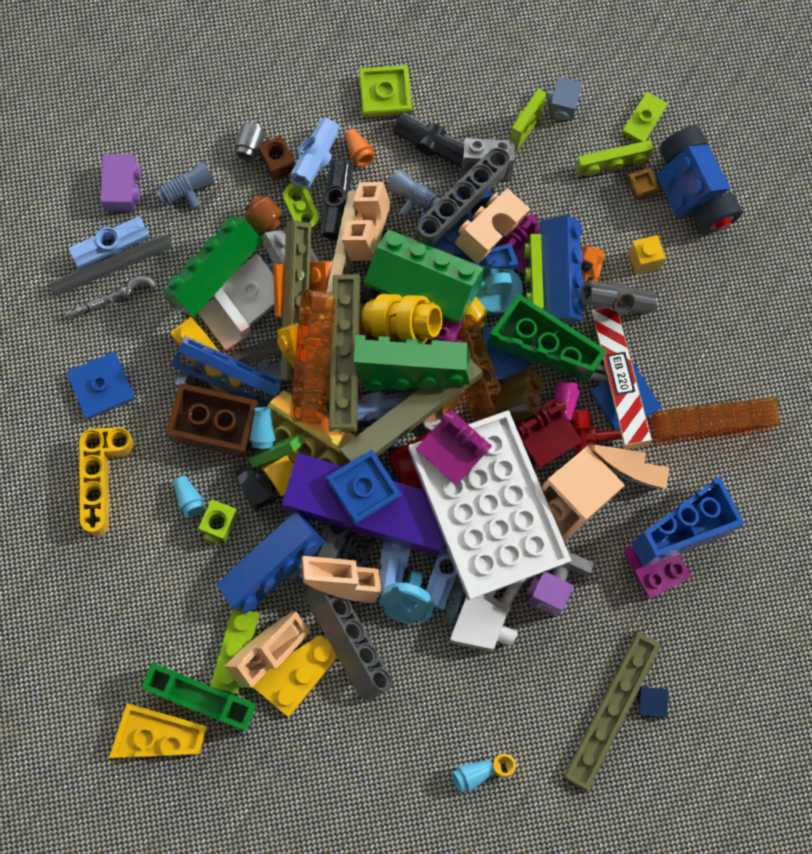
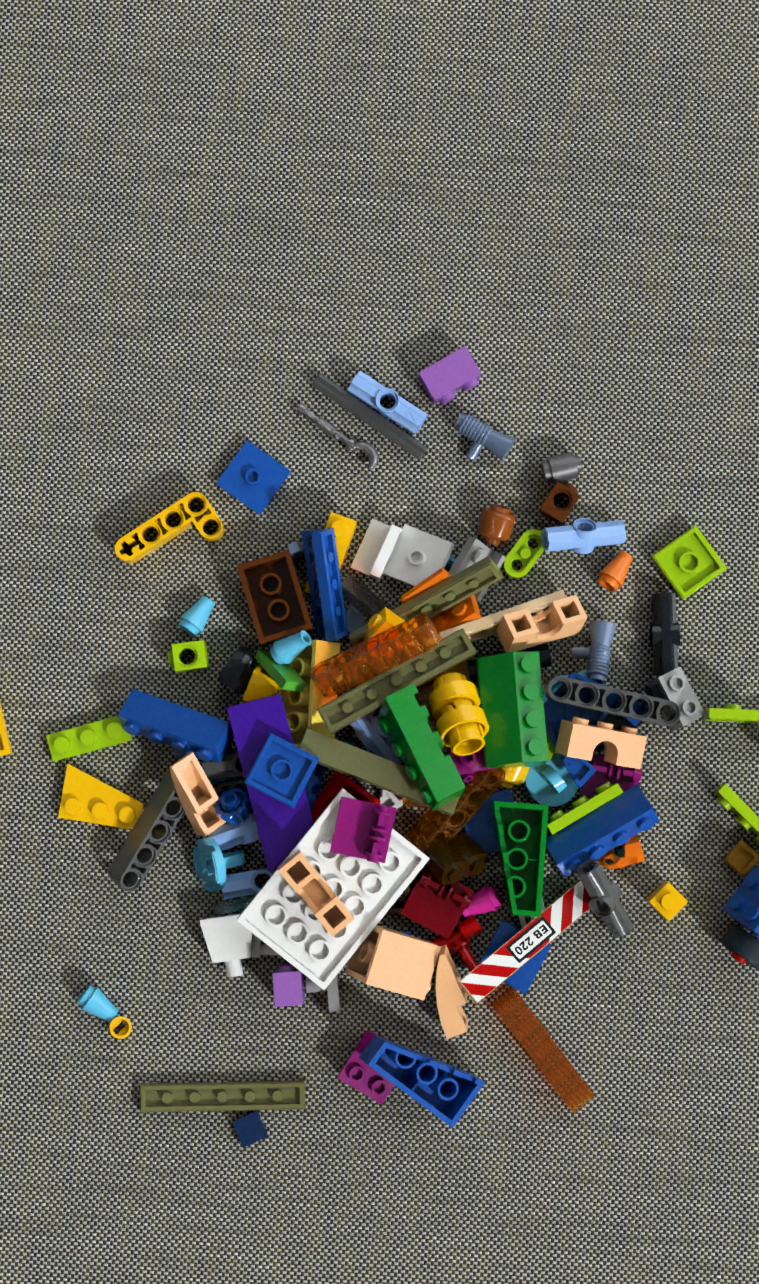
camera: 70 degrees right, 10 degrees up
(199, 697) = (28, 713): green arch -> none
(212, 266) = (413, 513): green slope -> none
(267, 650) = (103, 767): light nougat slope -> none
(338, 186) = (566, 576): black piece -> none
(369, 552) = (233, 806): none -> blue piece
(501, 512) = (316, 892): none -> light nougat arch

